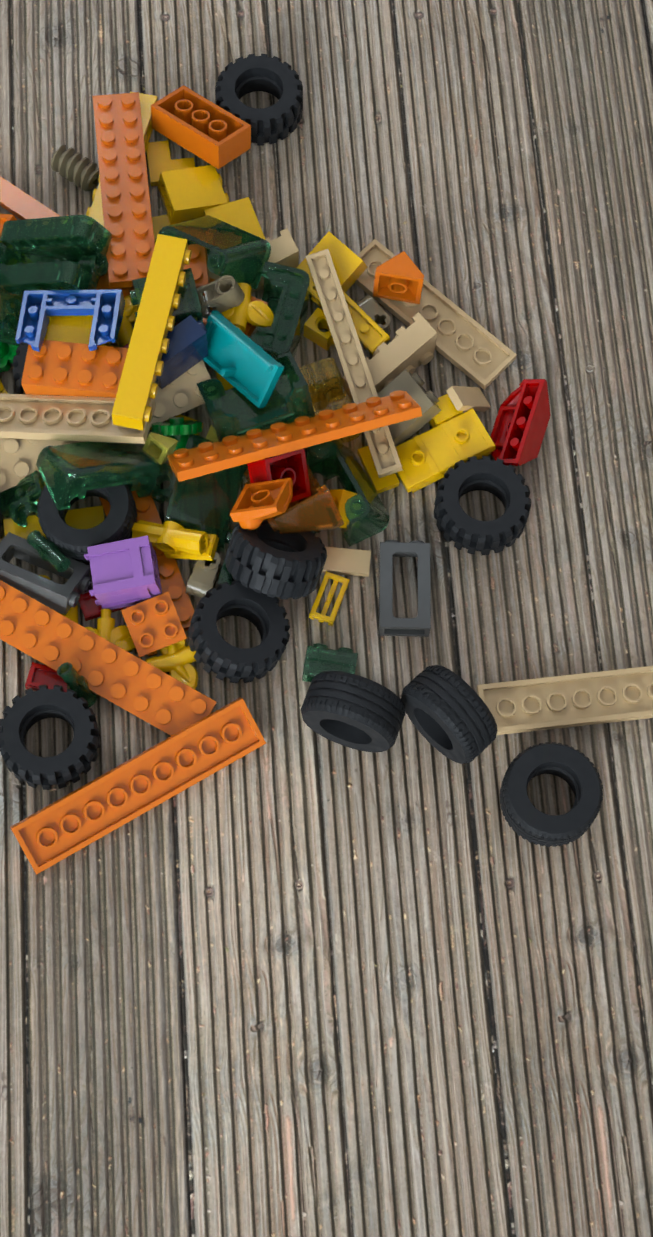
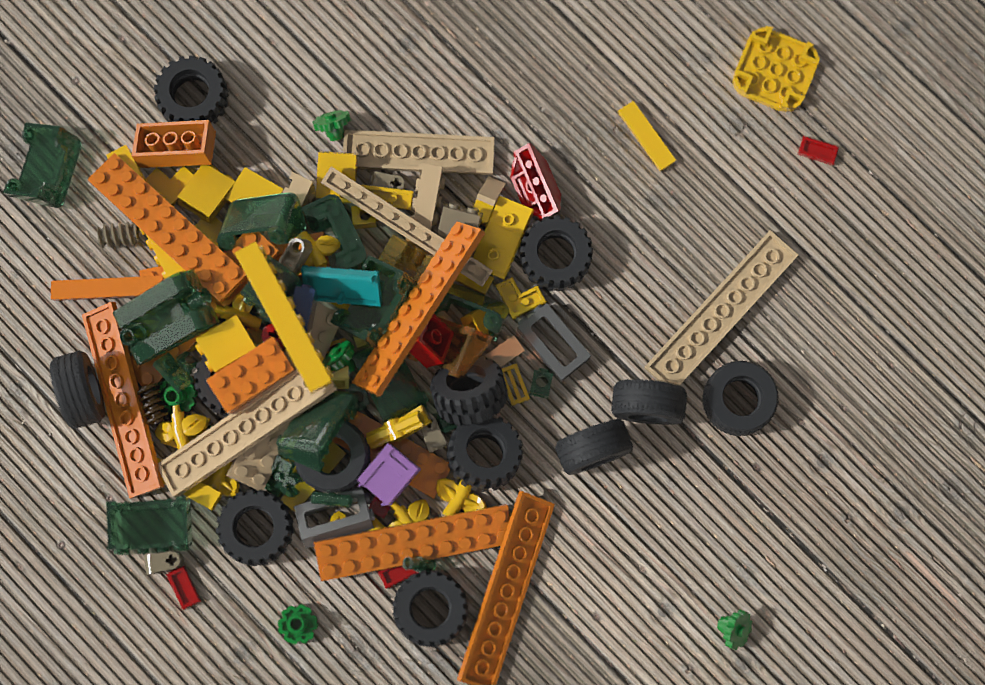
camera: 40 degrees left, 10 degrees up
(38, 306) = (193, 352): blue wedge -> none
(71, 66) = (47, 165): none -> clear green windscreen
(154, 624) = (430, 489): orange hinge -> none
(261, 502) = (438, 367): orange slope -> none
(322, 659) = (551, 426): clear green brick -> none
(342, 1024) = (735, 628): none -> green plant
(352, 626) = (542, 392): none -> clear green brick
(367, 224) = (332, 124): none -> green plant
(399, 280) = (388, 148): orange slope -> none
(402, 523) = (518, 302): none -> yellow tile

